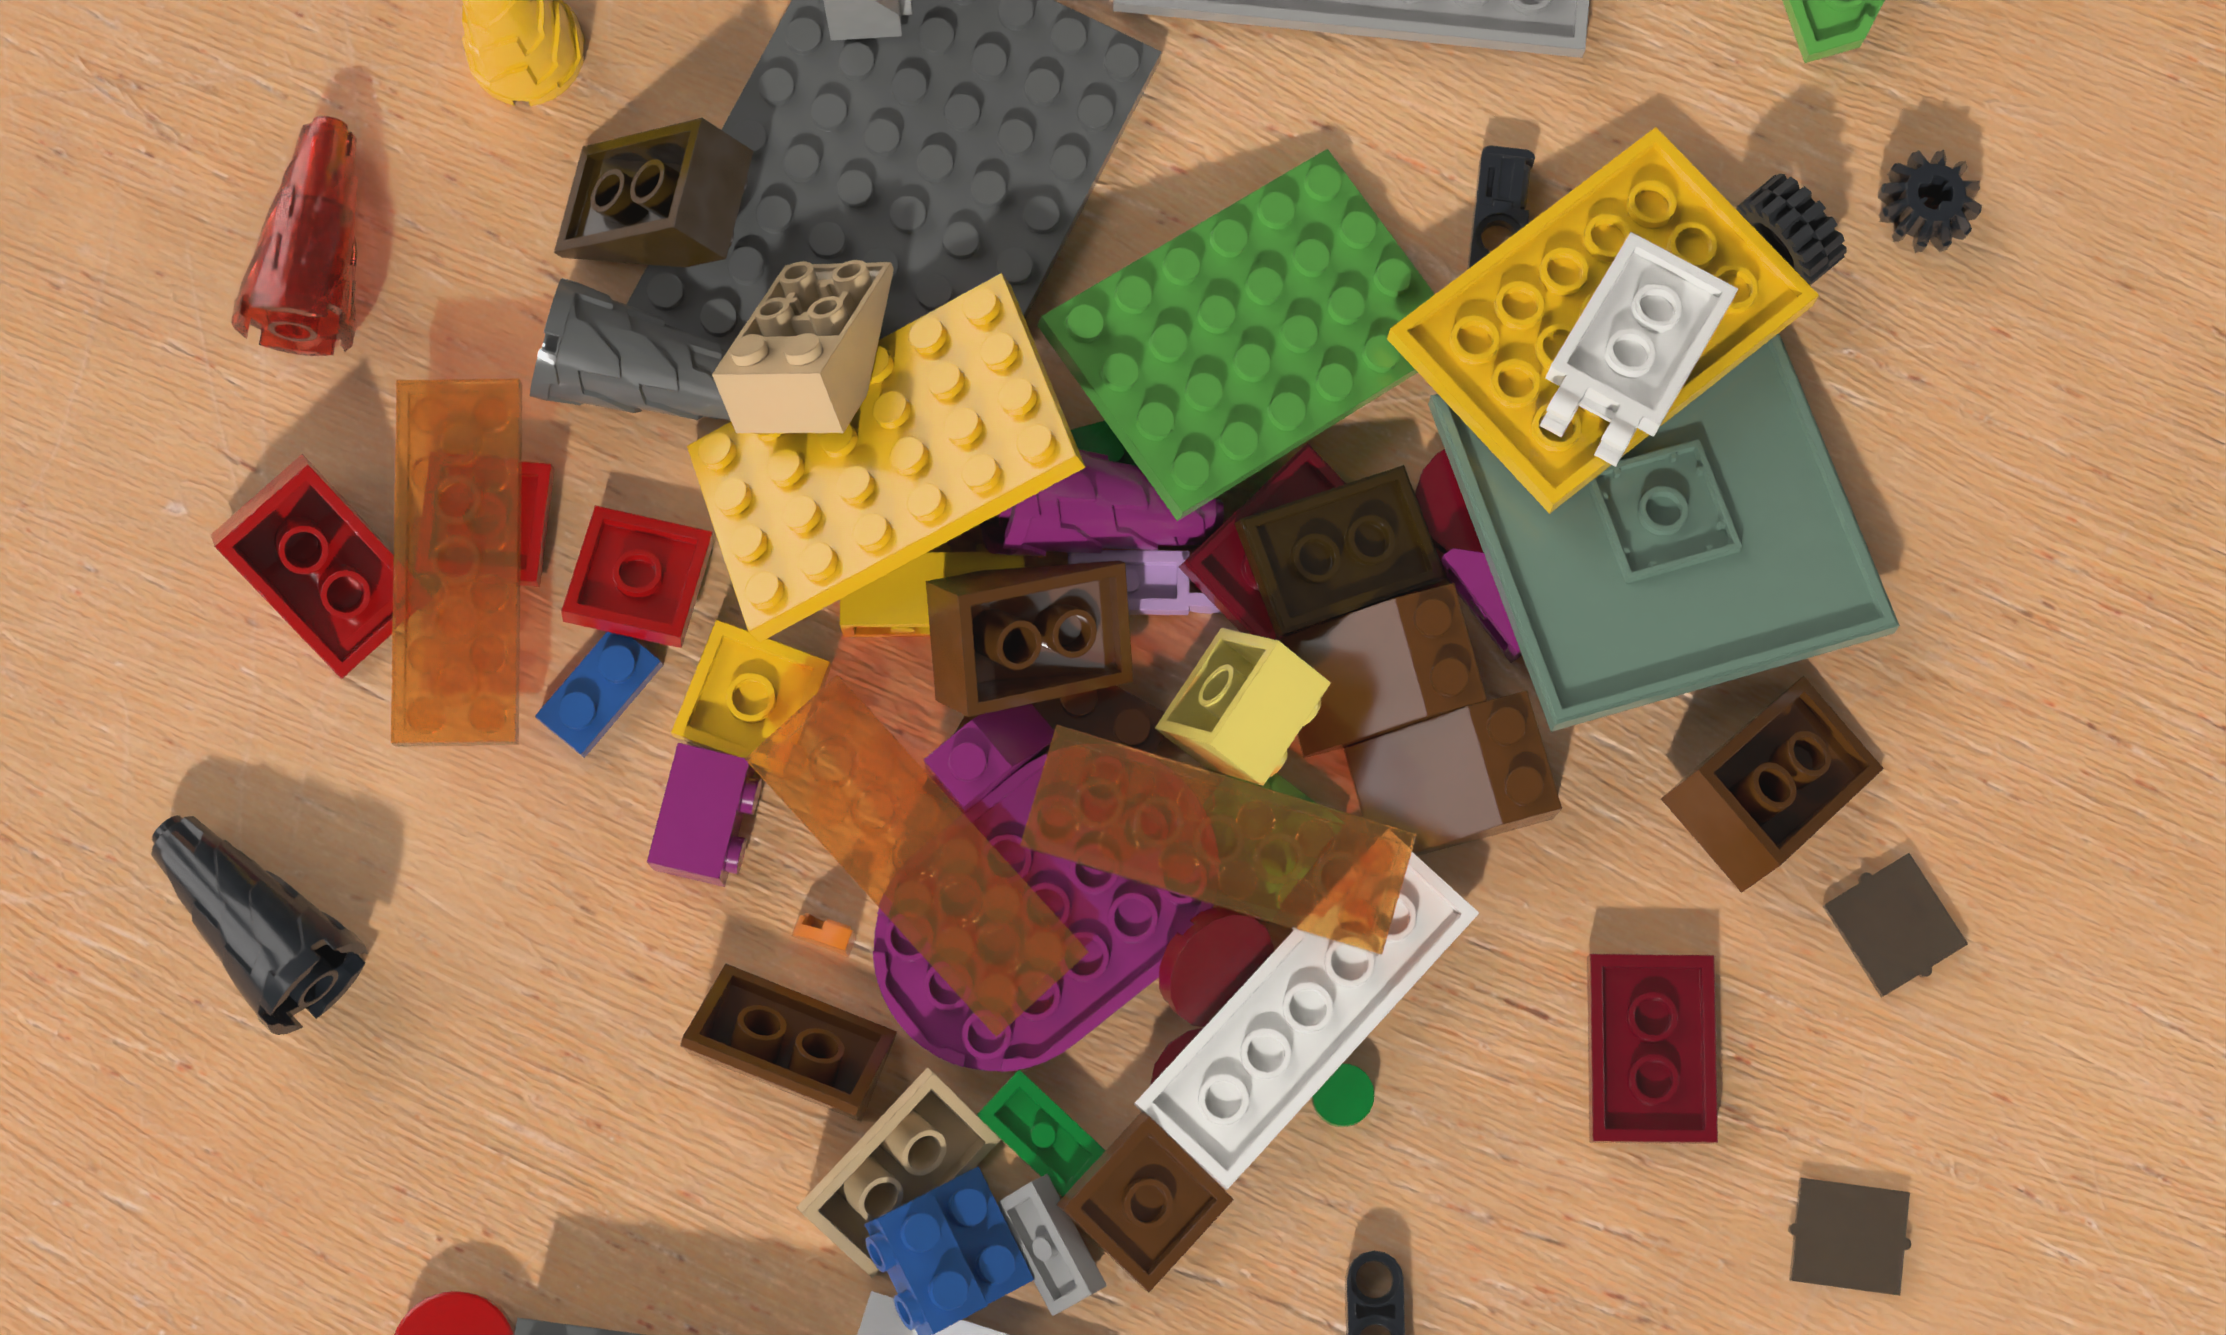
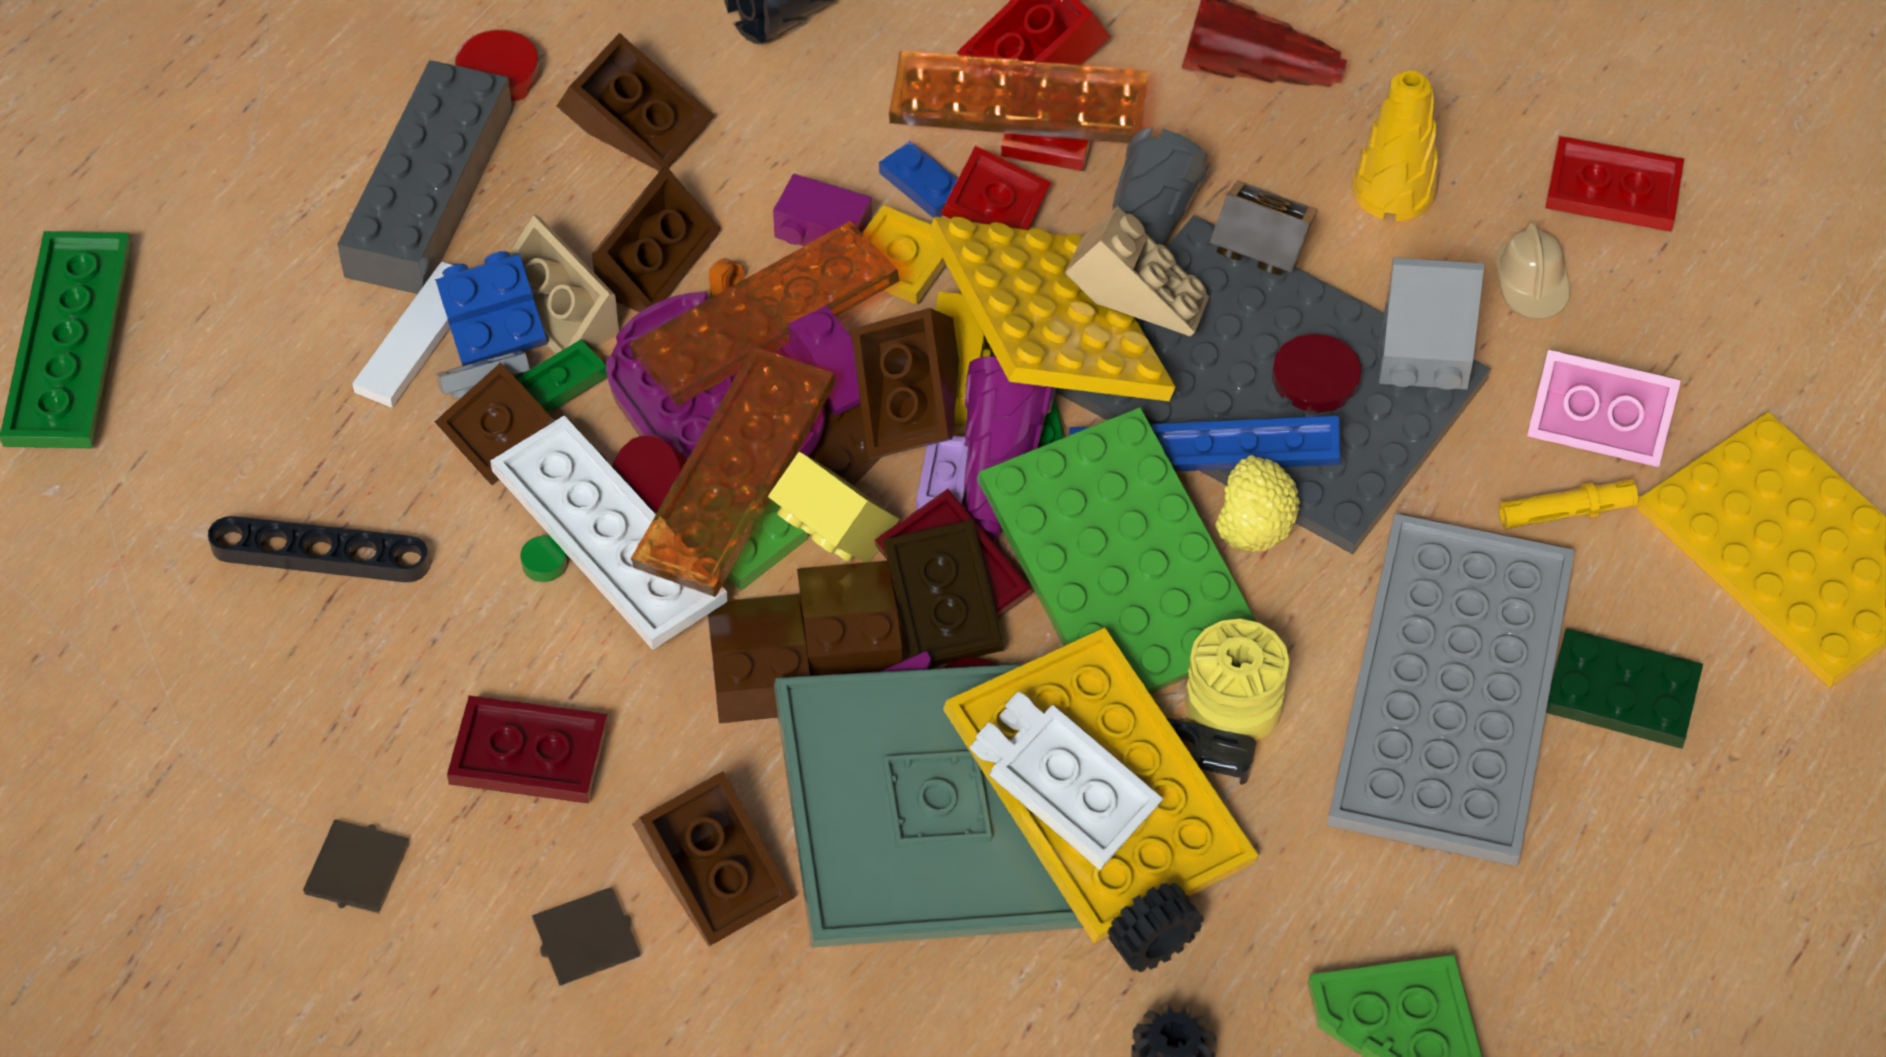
camera: 100 degrees right, 25 degrees down
(520, 1128) = (634, 105): none -> reddish brown slope
(904, 112) = (1316, 372): none -> dark red tile
(1052, 209) = (1225, 443): none -> blue plate
(1144, 158) = (1257, 505): none -> light yellow hair
(1411, 200) = (1237, 678): none -> light yellow wheel

